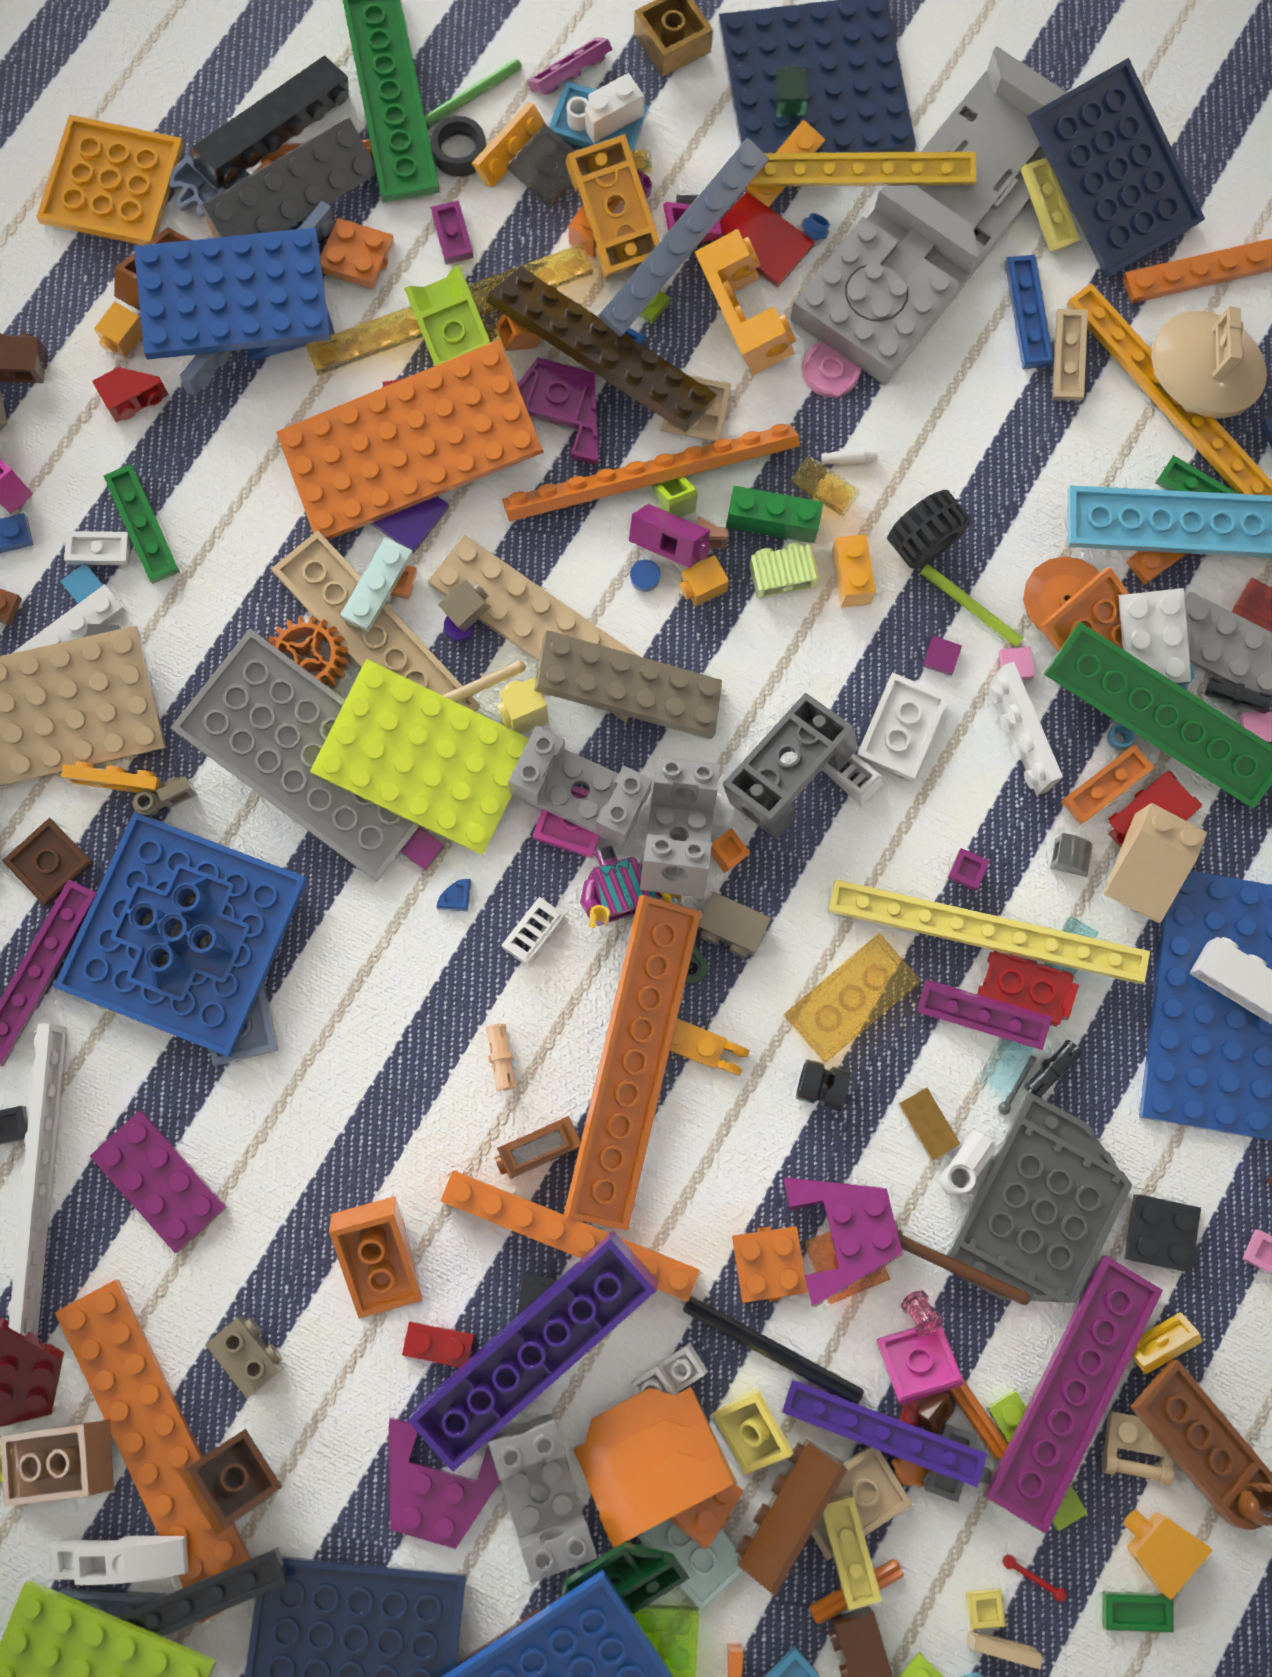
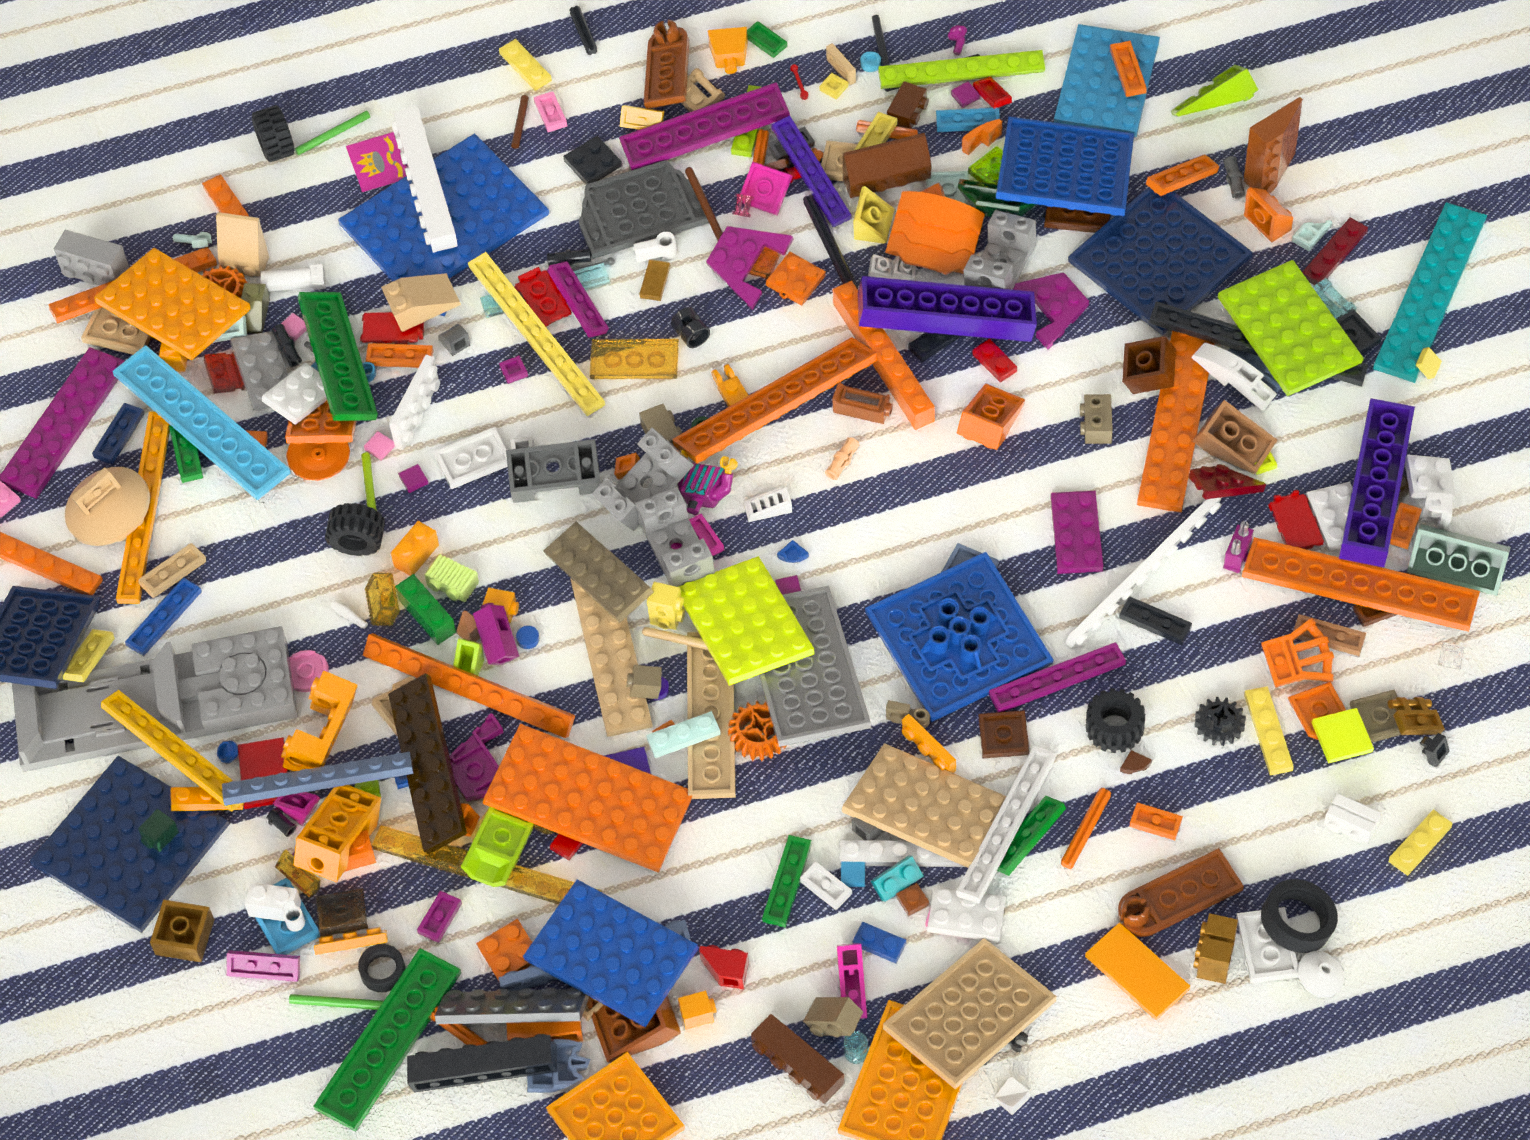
camera: 130 degrees left, 20 degrees down
(29, 609) = (897, 878): none -> plate

